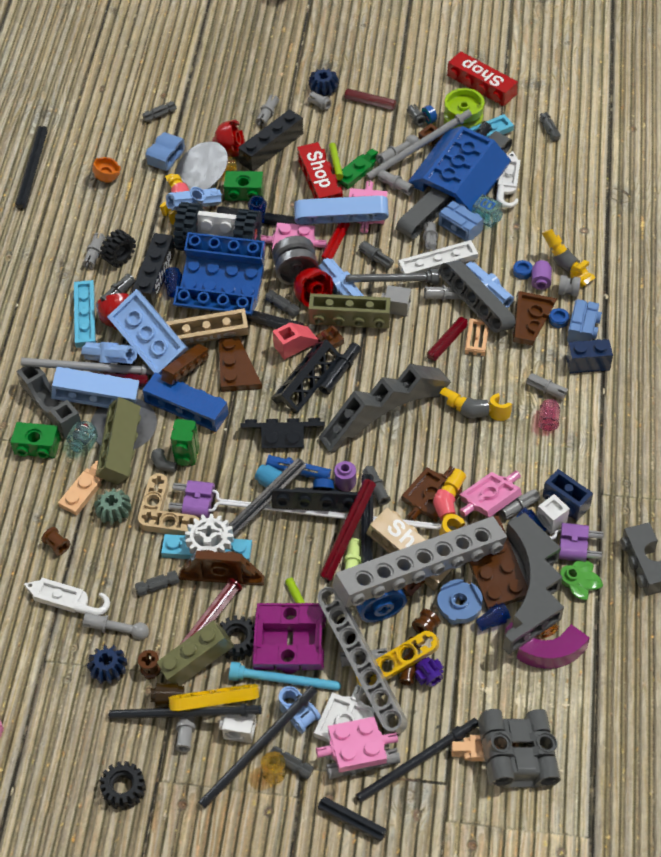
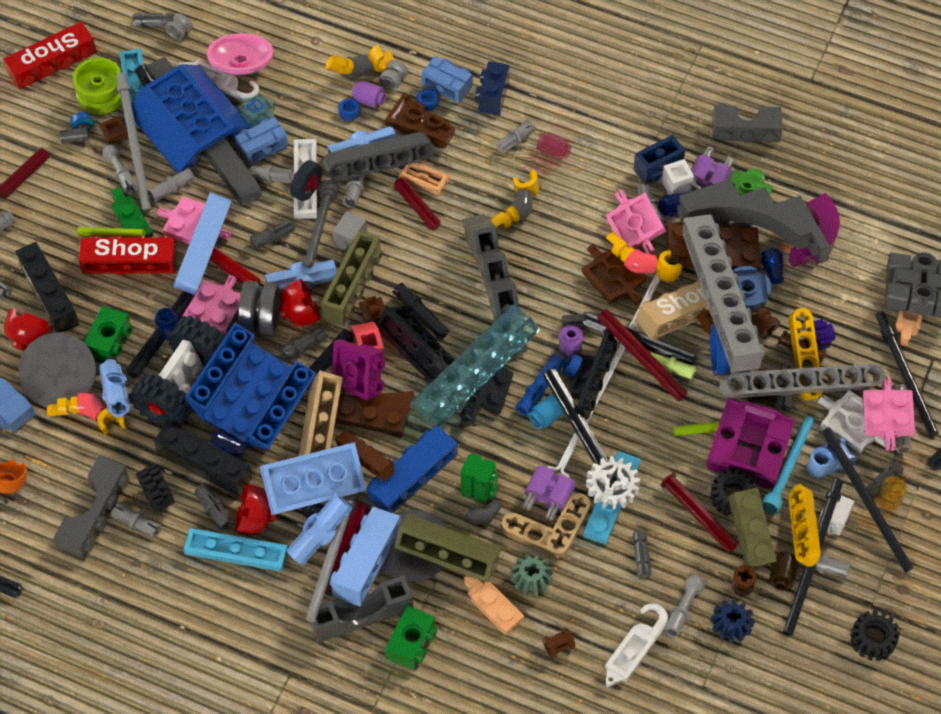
camera: 75 degrees left, 5 degrees up
(72, 222) = (78, 533): none -> dark grey arch
(82, 436) = (425, 586): clear light blue head -> none
(219, 566) = (649, 487): reddish brown wing -> none
(259, 337) = (359, 367): none -> magenta plate
(288, 409) = (474, 366): none -> clear light blue brick
(424, 251) = (306, 180): none -> black wheel
(535, 181) = (240, 54): none -> bright pink dish
(547, 141) = (178, 27): none -> light grey wheel

